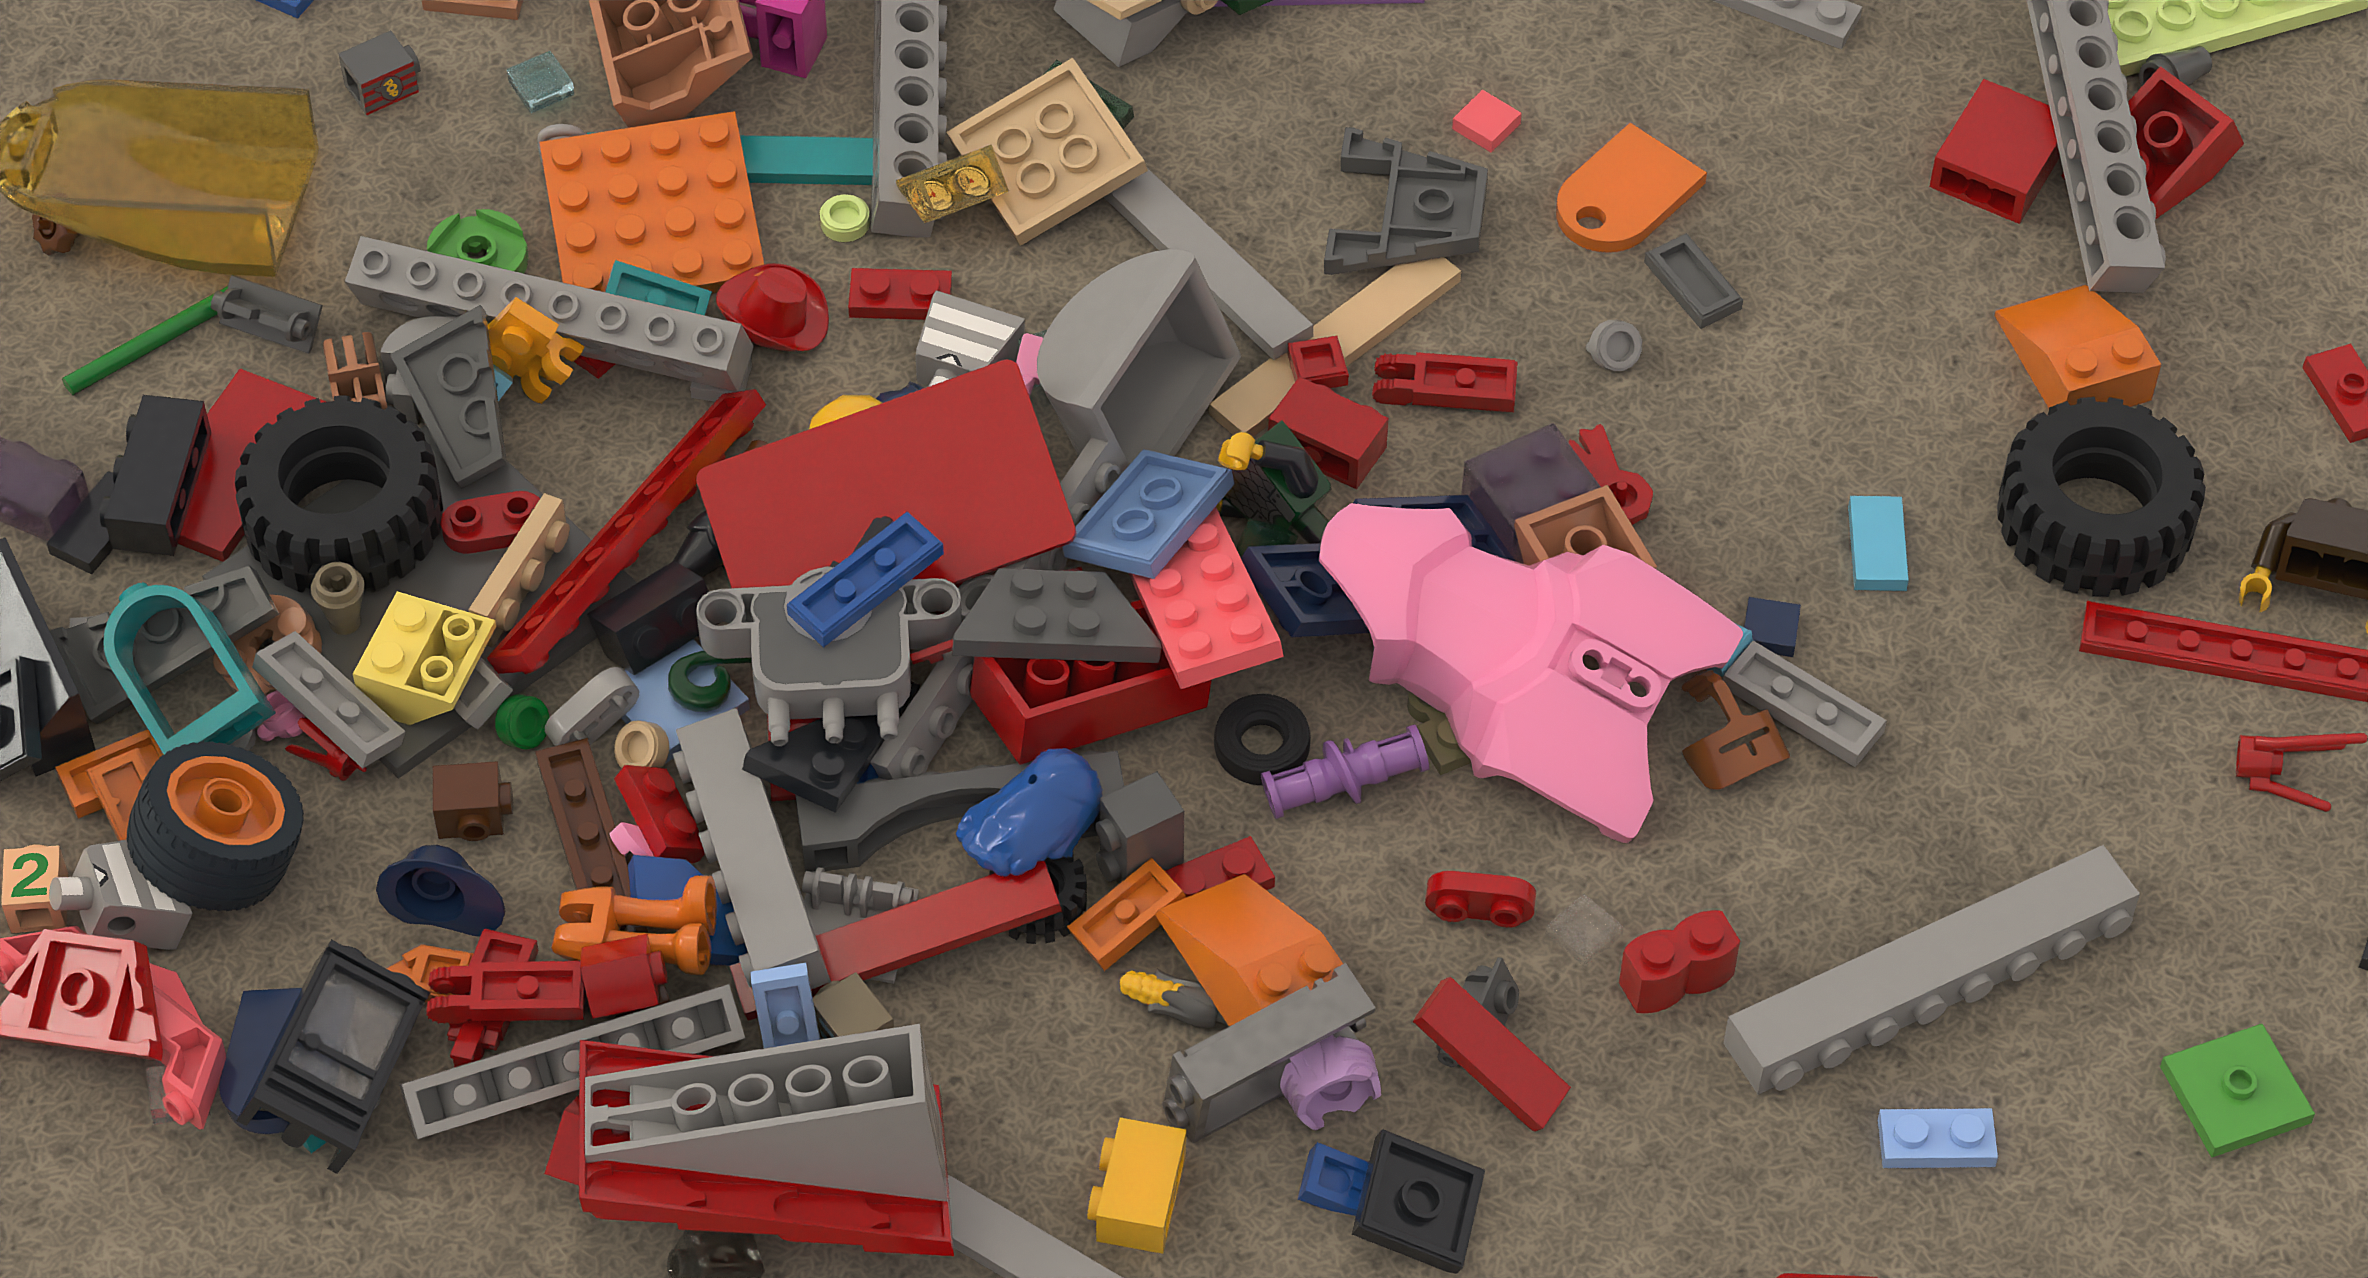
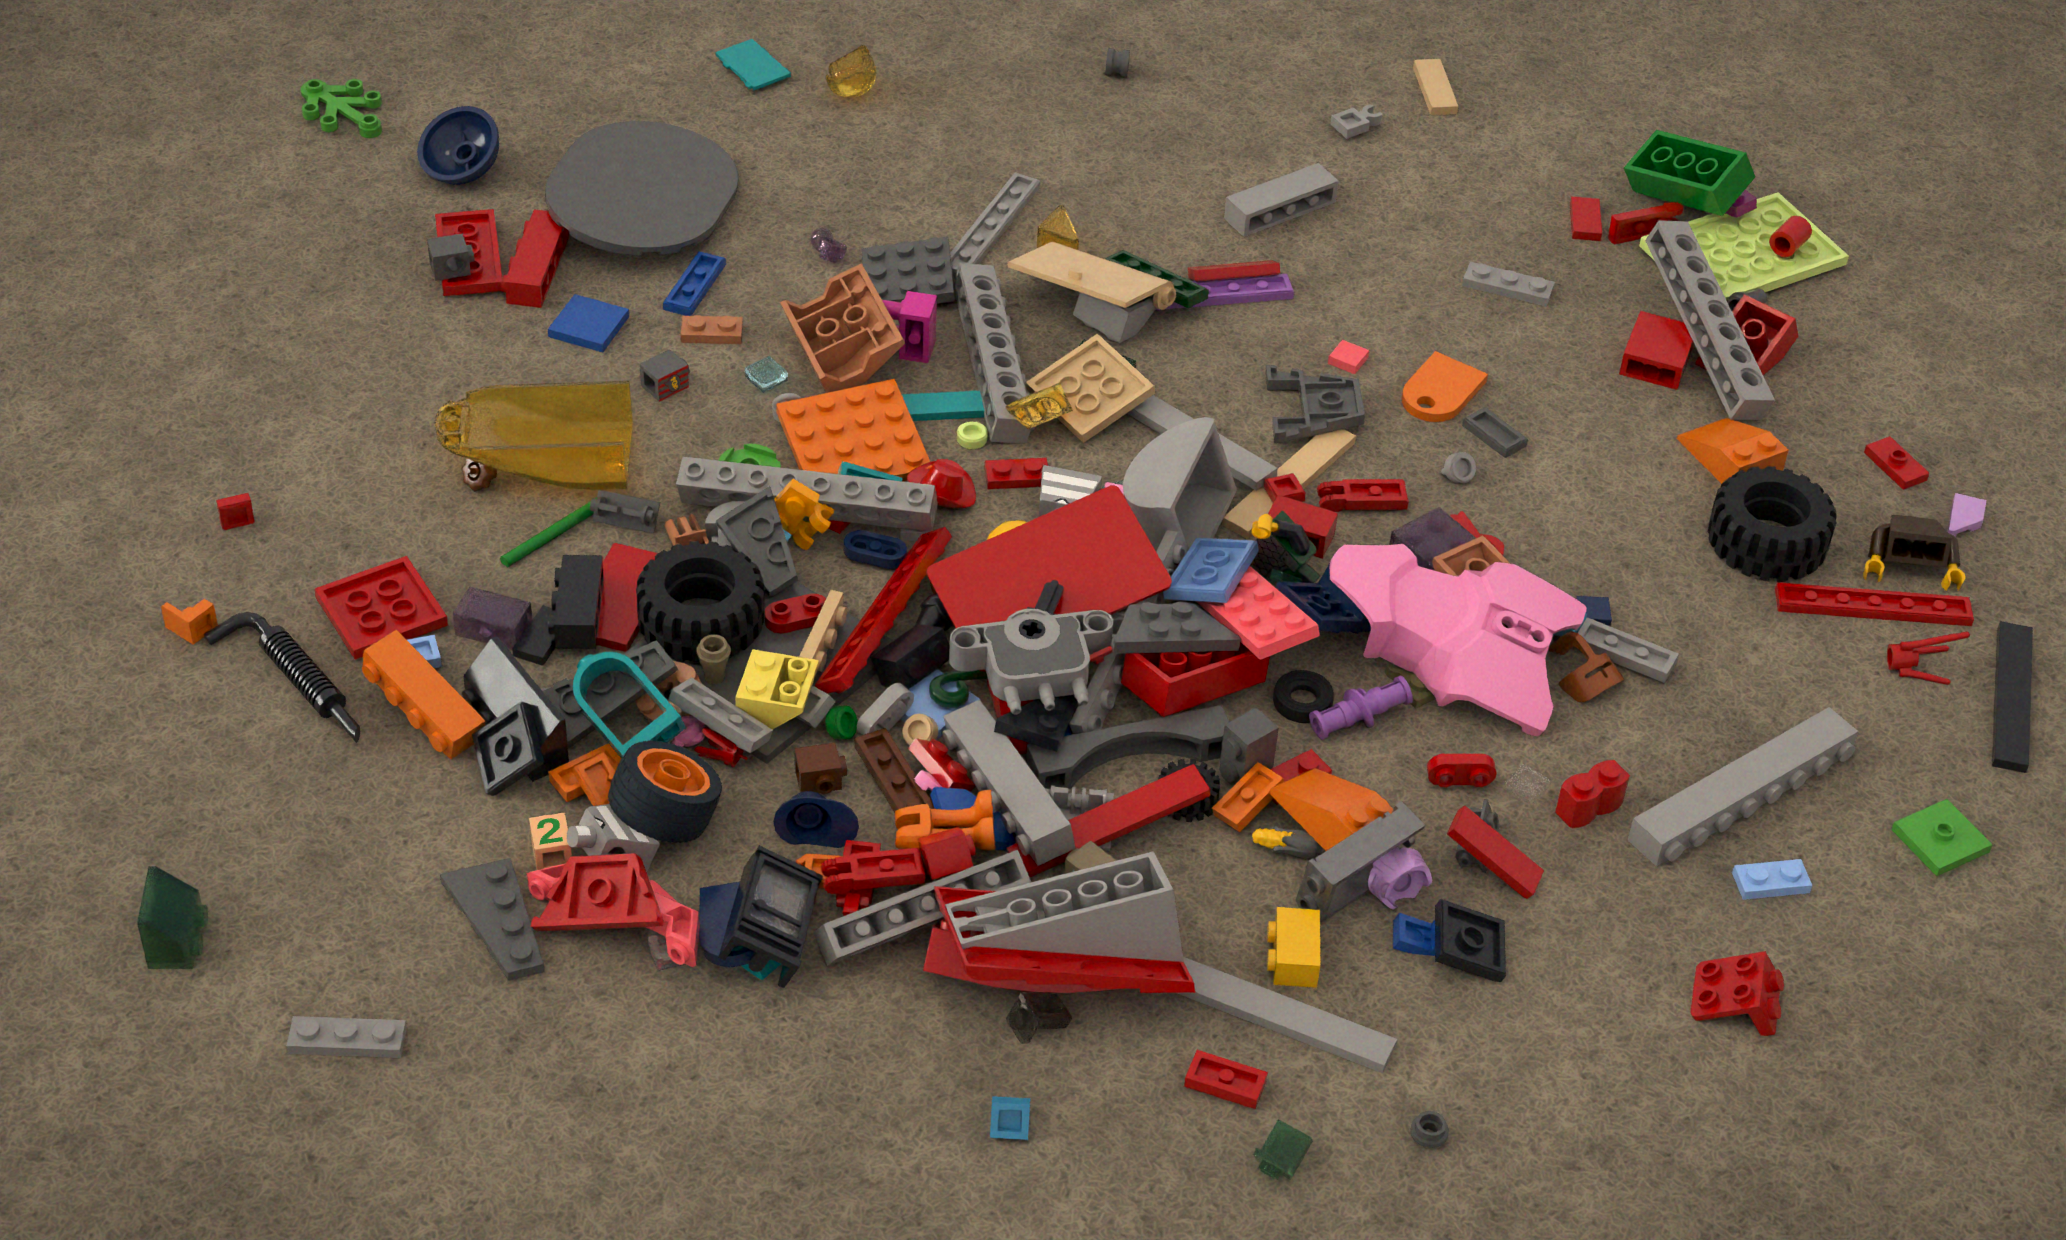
camera: 10 degrees left, 10 degrees down
(646, 415) = (874, 549): none -> dark blue plate
(784, 1005) = (1052, 855): light blue plate -> none
(865, 579) = (1052, 612): blue tile -> none
(1033, 815) = (1183, 739): blue piece -> none
(1878, 543) = (1644, 562): medium azure tile -> none

